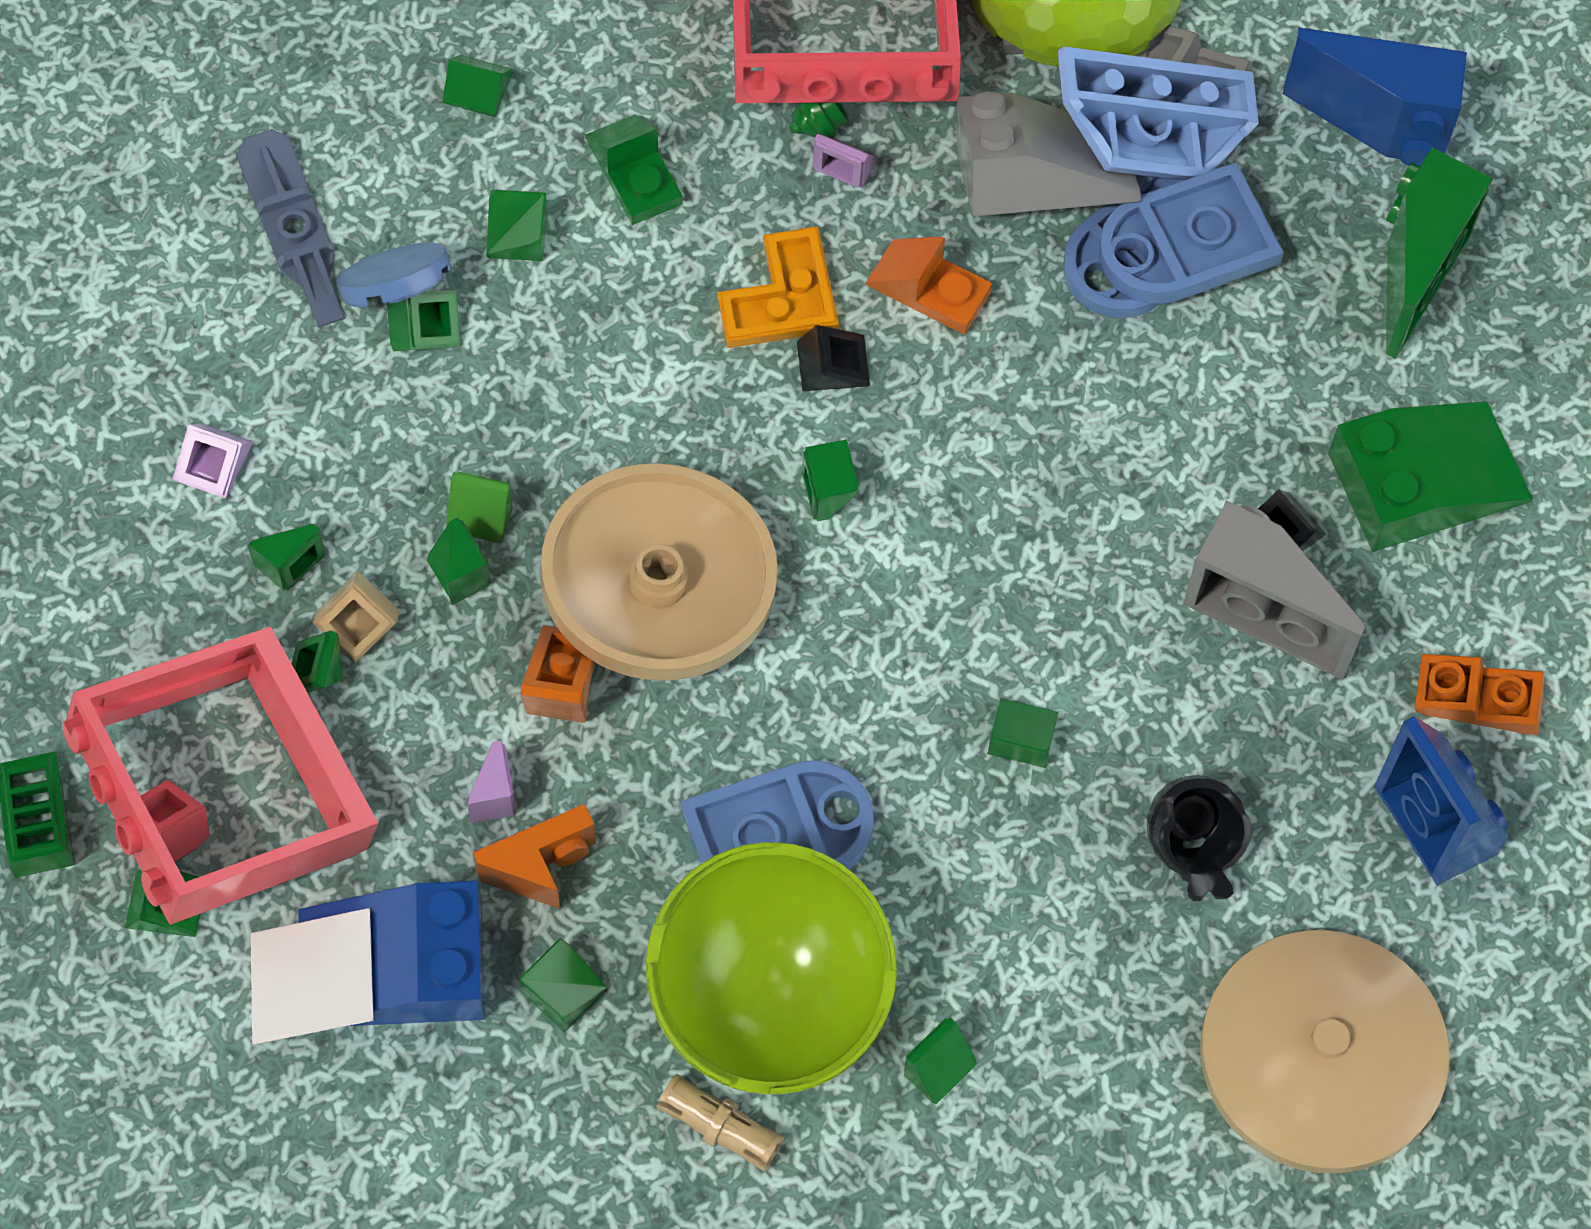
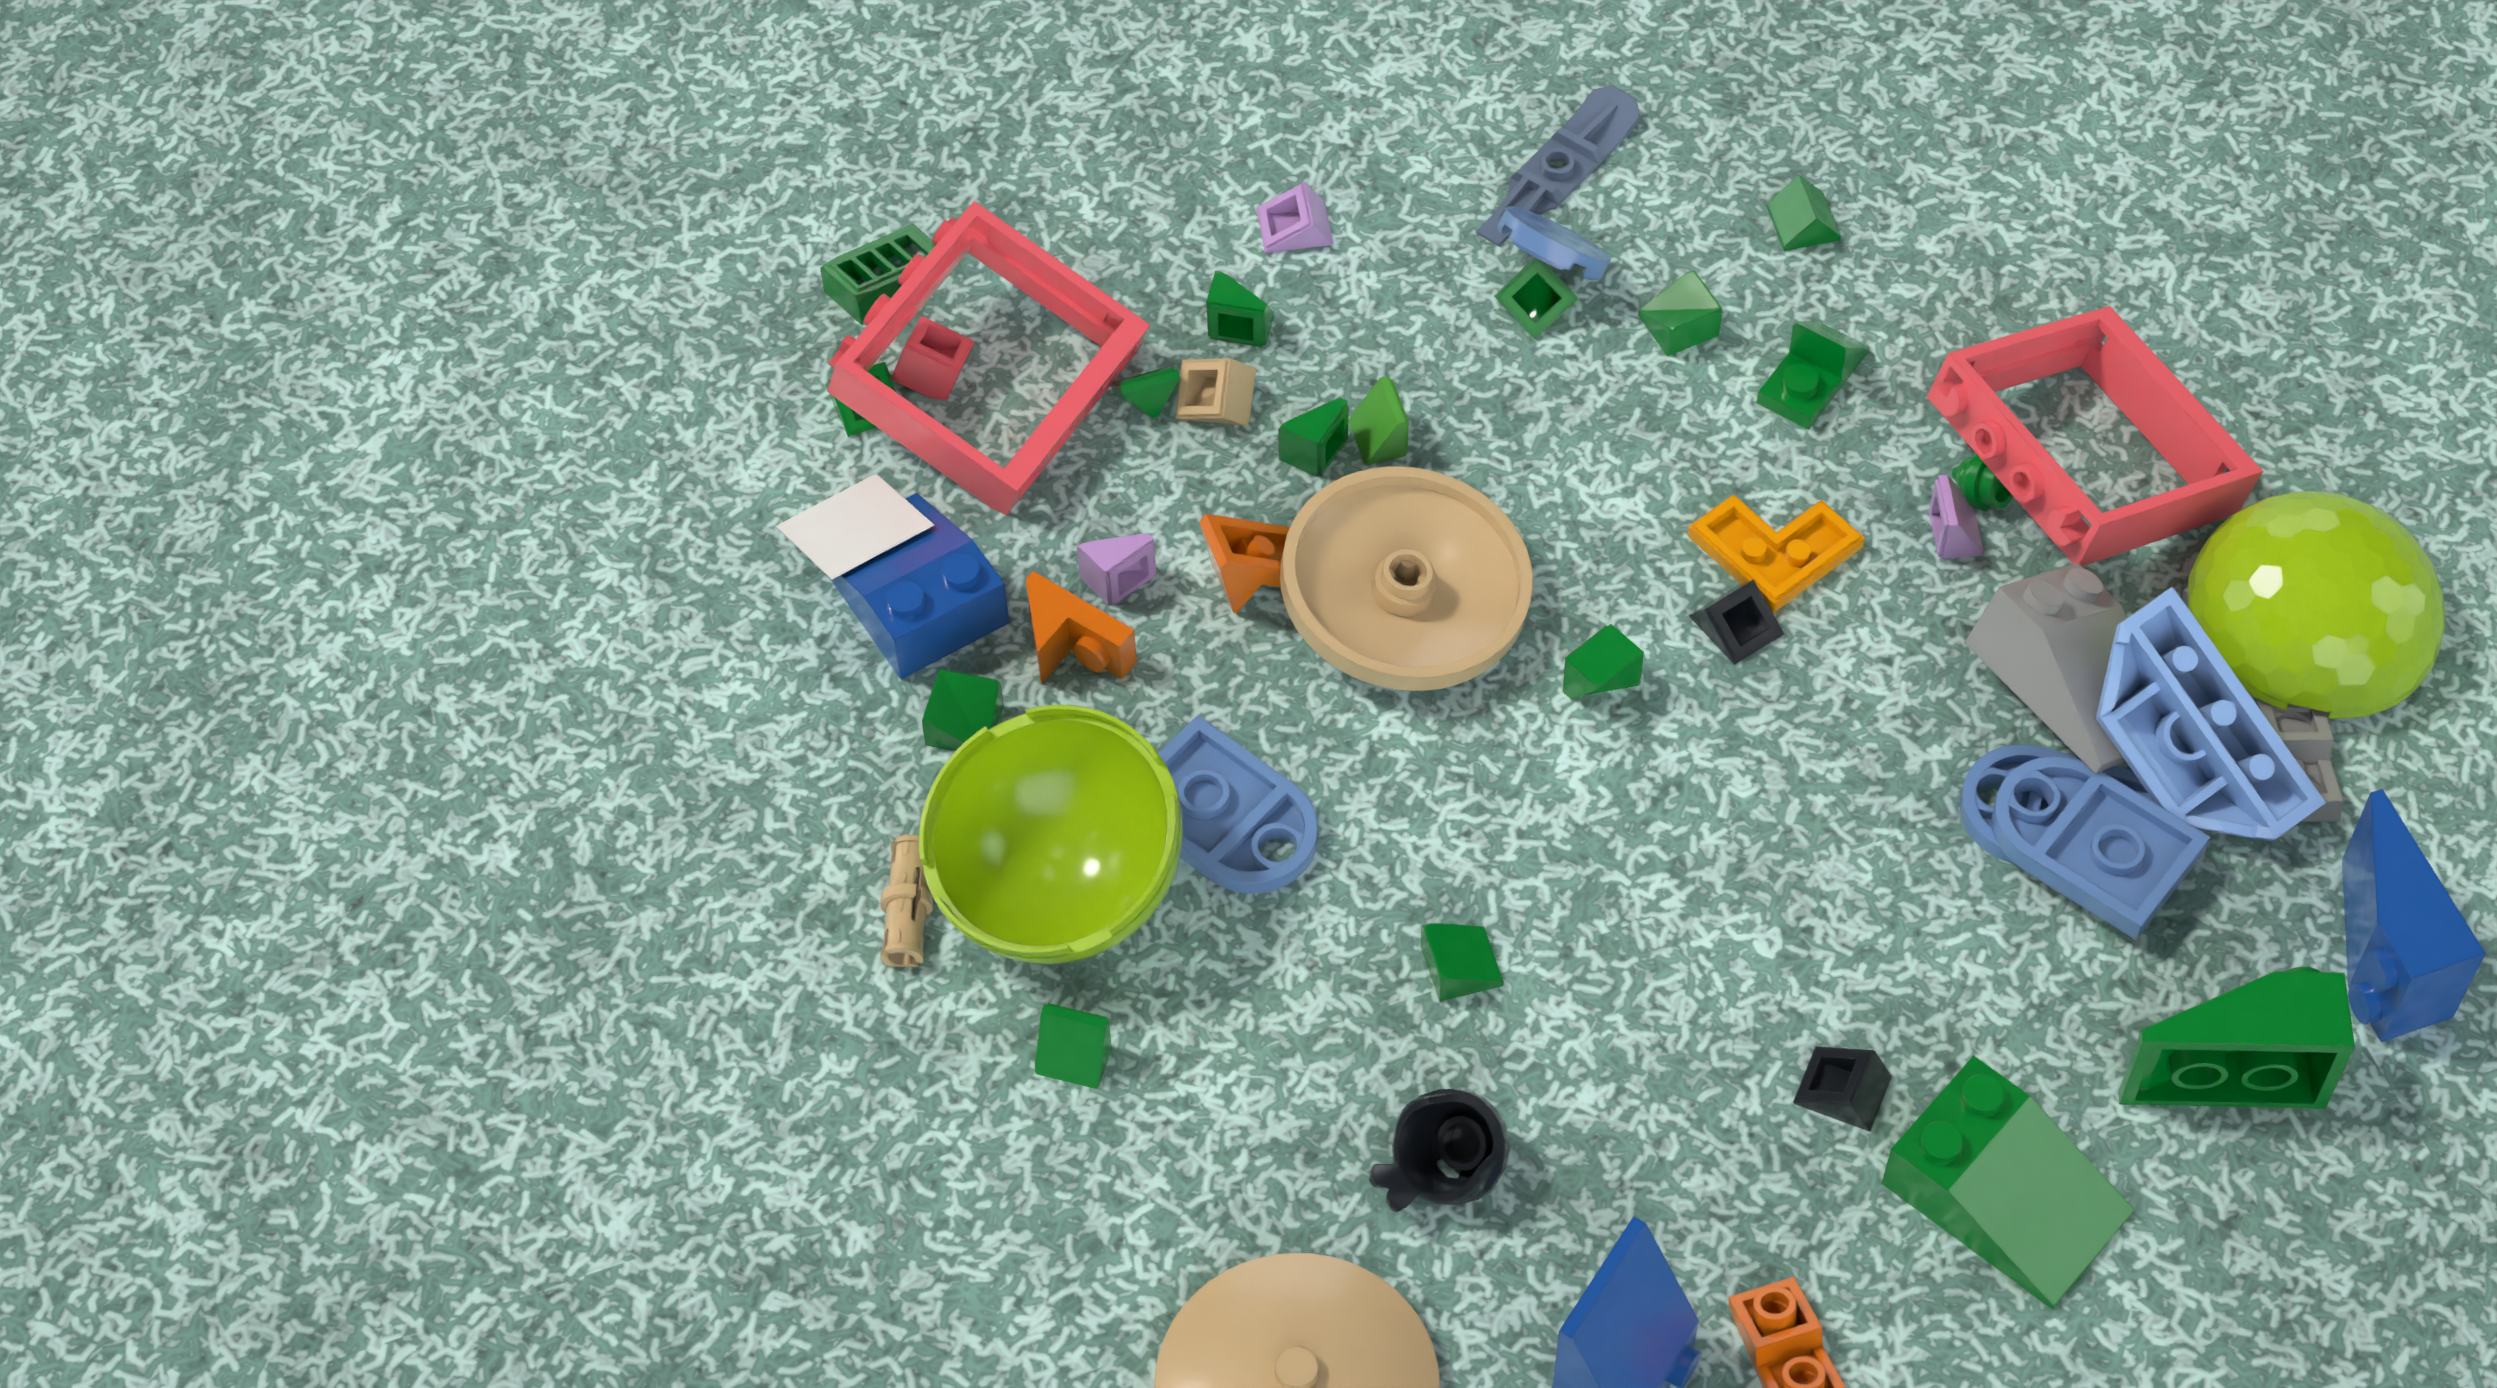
camera: 65 degrees right, 10 degrees down
(921, 279) = (1878, 660): orange slope -> none
(1270, 590) = (1746, 1056): light grey slope -> none

